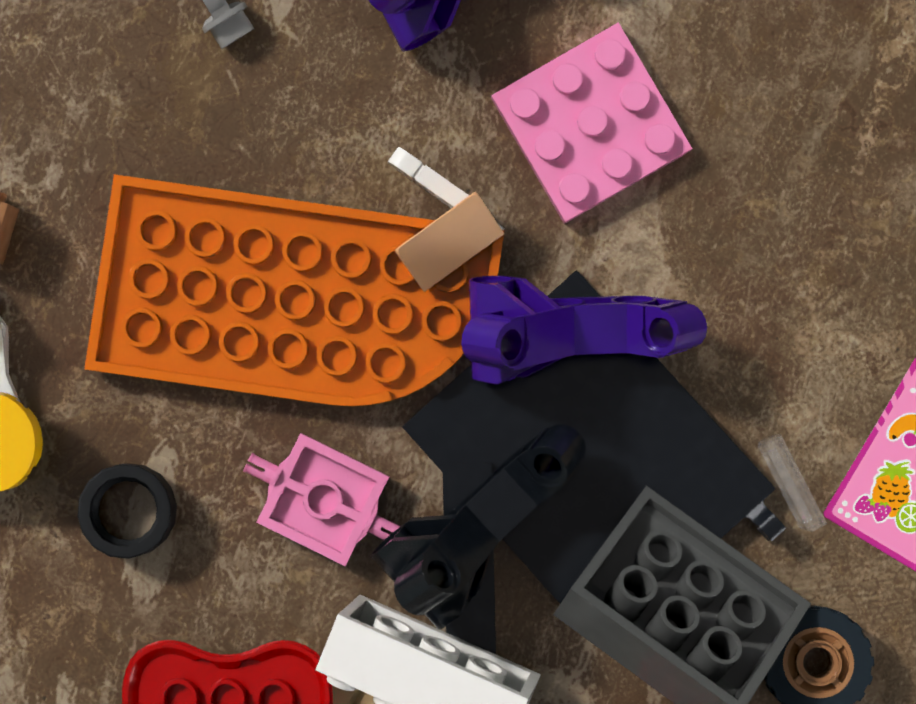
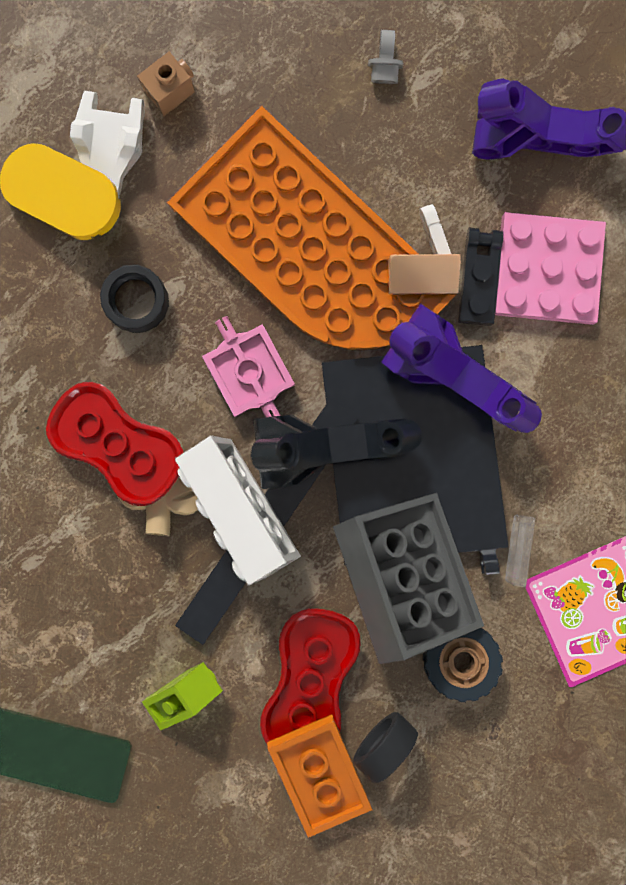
camera: 30 degrees right, 0 degrees up
(517, 192) = (480, 277): none -> black plate

